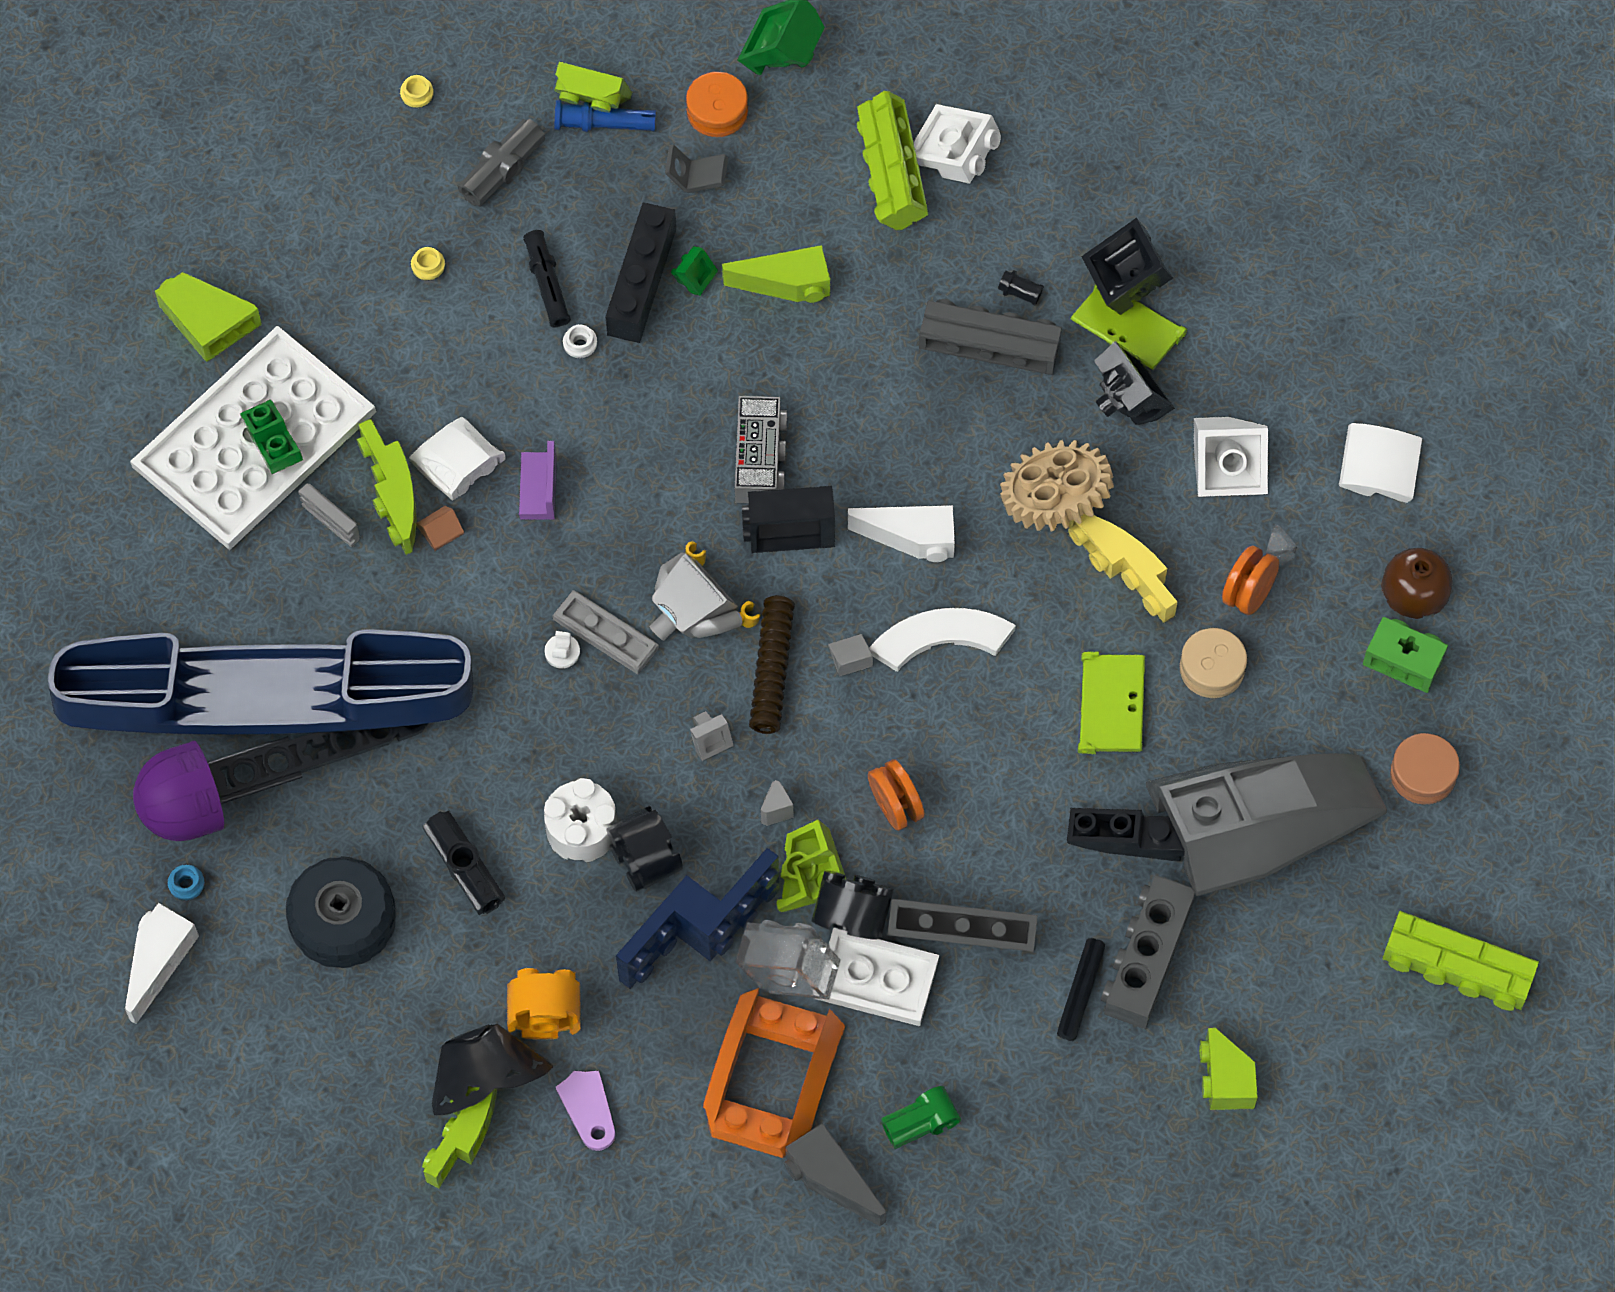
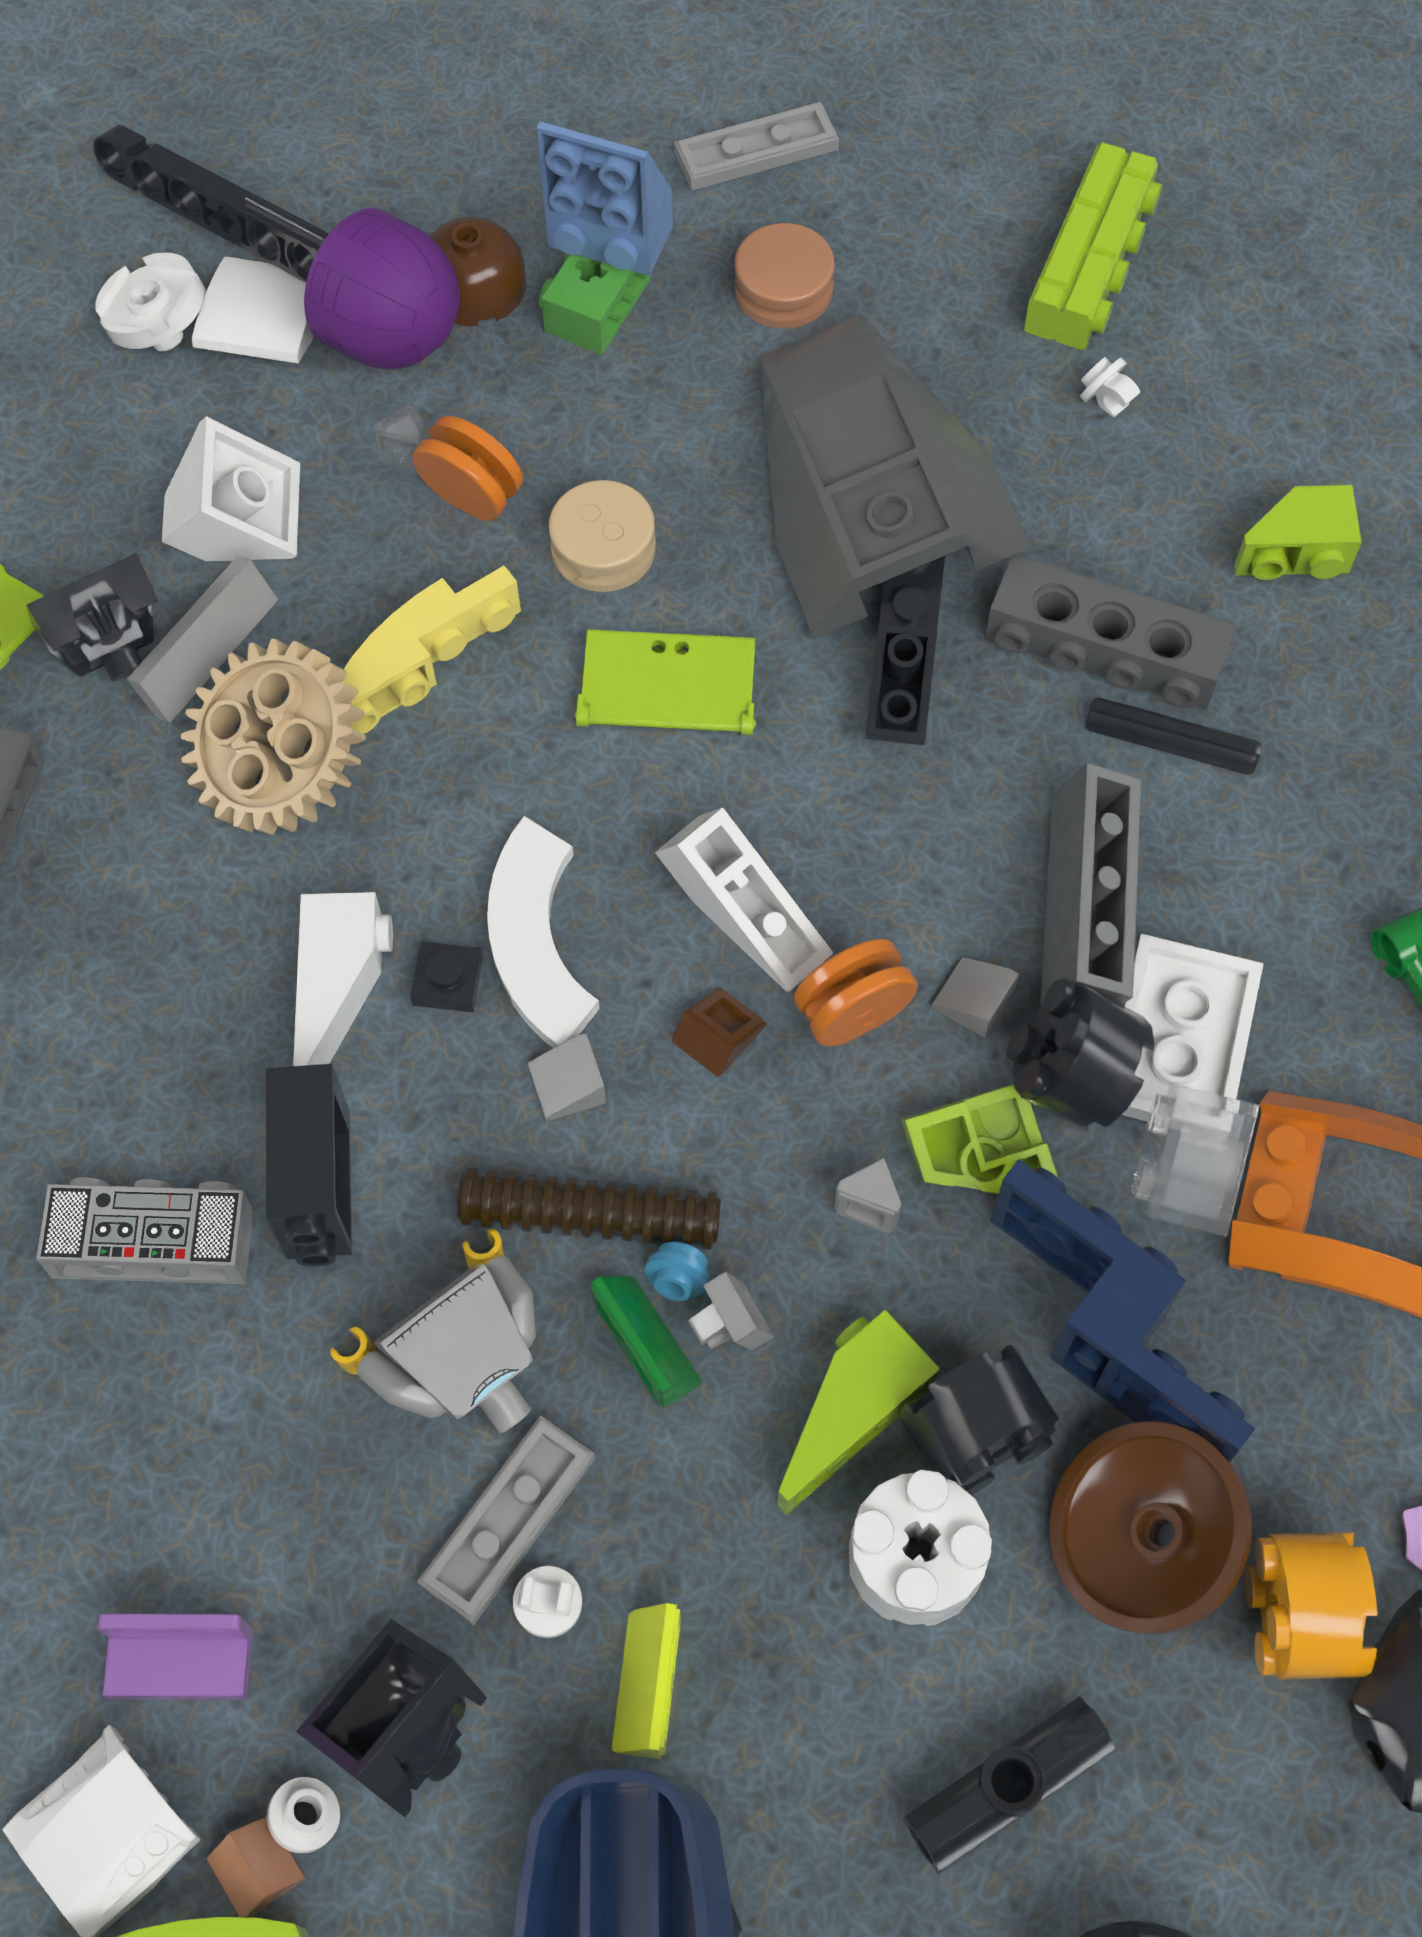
camera: 90 degrees left, 0 degrees up
(461, 555) = (288, 1830): none -> white plate
(501, 575) = (394, 1716): none -> black brick
(520, 700) = (647, 1681): none -> neon yellow slope
(585, 929) = (1110, 1522): none -> reddish brown dish
(665, 792) = (860, 1396): none -> lime slope
(699, 692) = (644, 1338): none -> green slope
(735, 708) = (678, 1271): none -> dark azure plate
(883, 732) = (717, 1031): none -> reddish brown slope
(903, 869) = (976, 994): none -> light grey slope
(914, 590) = (446, 976): none -> black plate
(961, 740) = (744, 897): none -> white slope
(1129, 447) = (203, 639): none -> light grey tile
(1341, 967) = (1110, 388): none -> white plate
(1362, 405) = (151, 302): none -> white plate
(1377, 518) = (371, 283): none -> piece
(1436, 636) = (603, 199): none -> medium blue slope
(1542, 756) = (756, 145): none -> light grey tile

